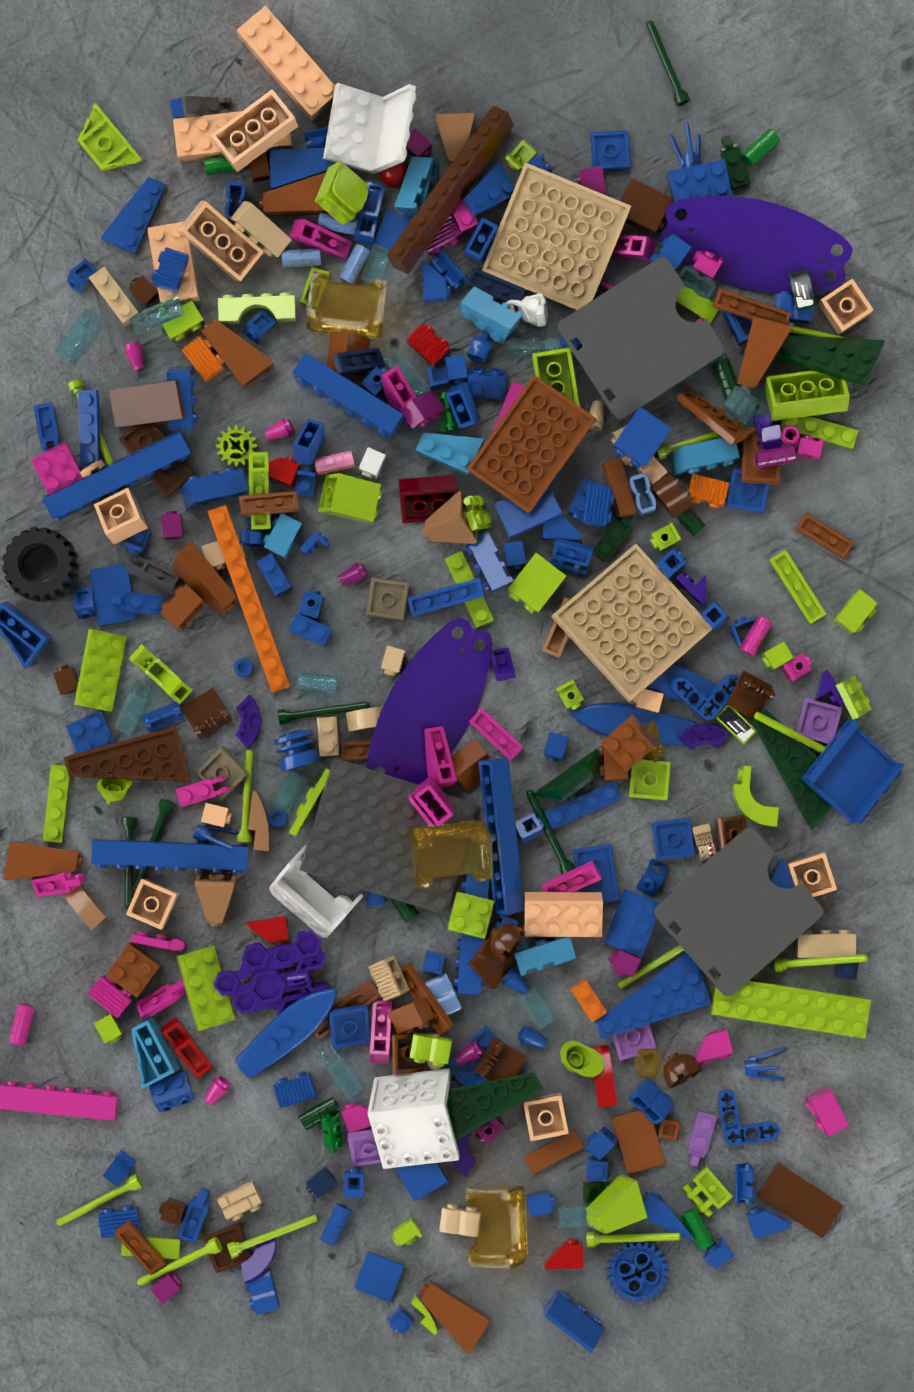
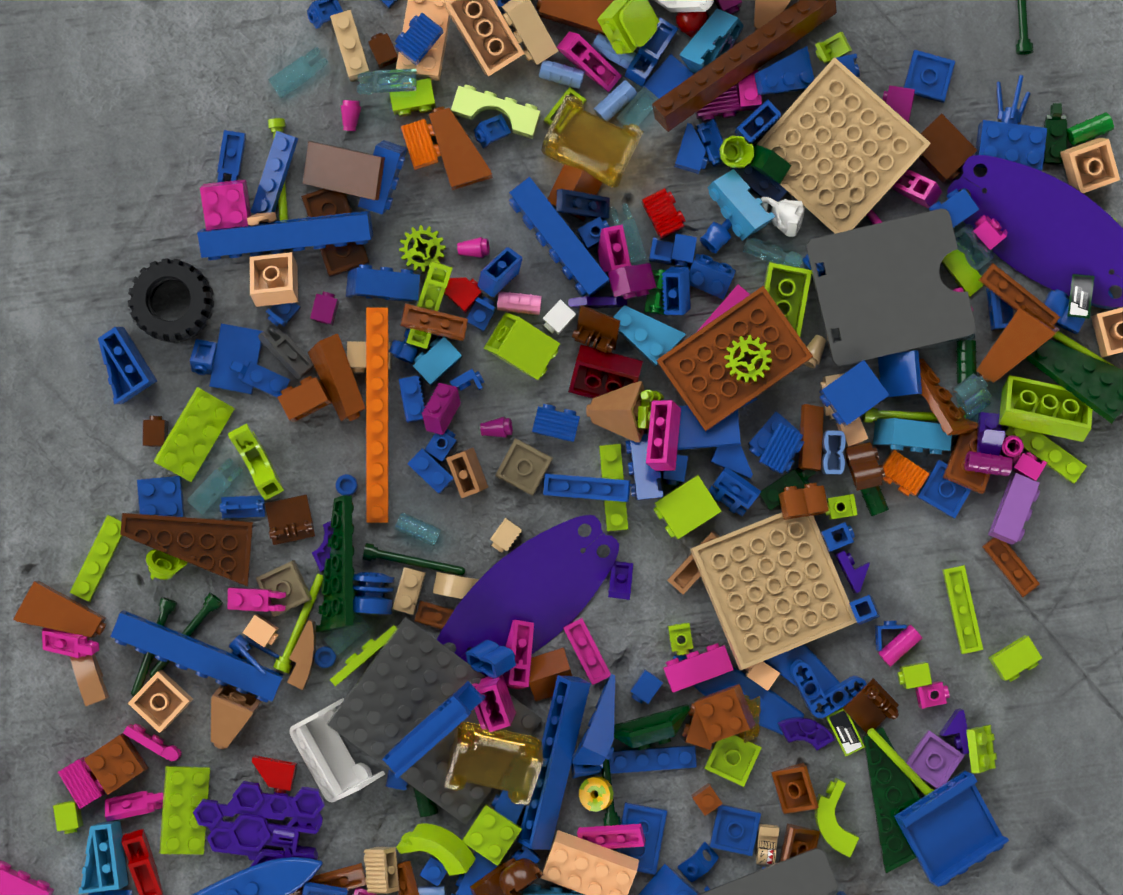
camera: 25 degrees right, 0 degrees up
(263, 740) = (339, 571): none -> dark green wing
(300, 574) = (441, 408): none -> magenta brick
(341, 620) = (467, 472): none -> medium nougat brick
(390, 839) = (433, 729): none -> blue piece
(393, 441) = (597, 302): none -> dark purple tile
(401, 553) = (555, 423): none -> blue brick
(407, 460) = (597, 328): none -> reddish brown hinge
(417, 767) = (491, 658): none -> blue brick
(432, 937) = (440, 843): none -> lime arch
(471, 271) = (736, 152): none -> lime hair
(495, 529) = (663, 435): none -> dark pink brick
(501, 271) = (769, 163): none -> dark green slope
(531, 798) = (597, 740): none -> blue wedge
(549, 434) = (758, 355): none -> lime gear
(553, 847) = (587, 796): none -> yellow piece
(593, 713) = (697, 667): none -> dark pink brick
(632, 544) = (803, 502): none -> dark orange brick
(640, 821) = (706, 799): none -> dark orange brick
(675, 408) = (900, 373): none -> blue tile
(710, 786) = (795, 789): none -> dark orange slope
(771, 177) = (1090, 165): none -> light nougat brick
(810, 487) = (1014, 509): none -> medium lavender brick

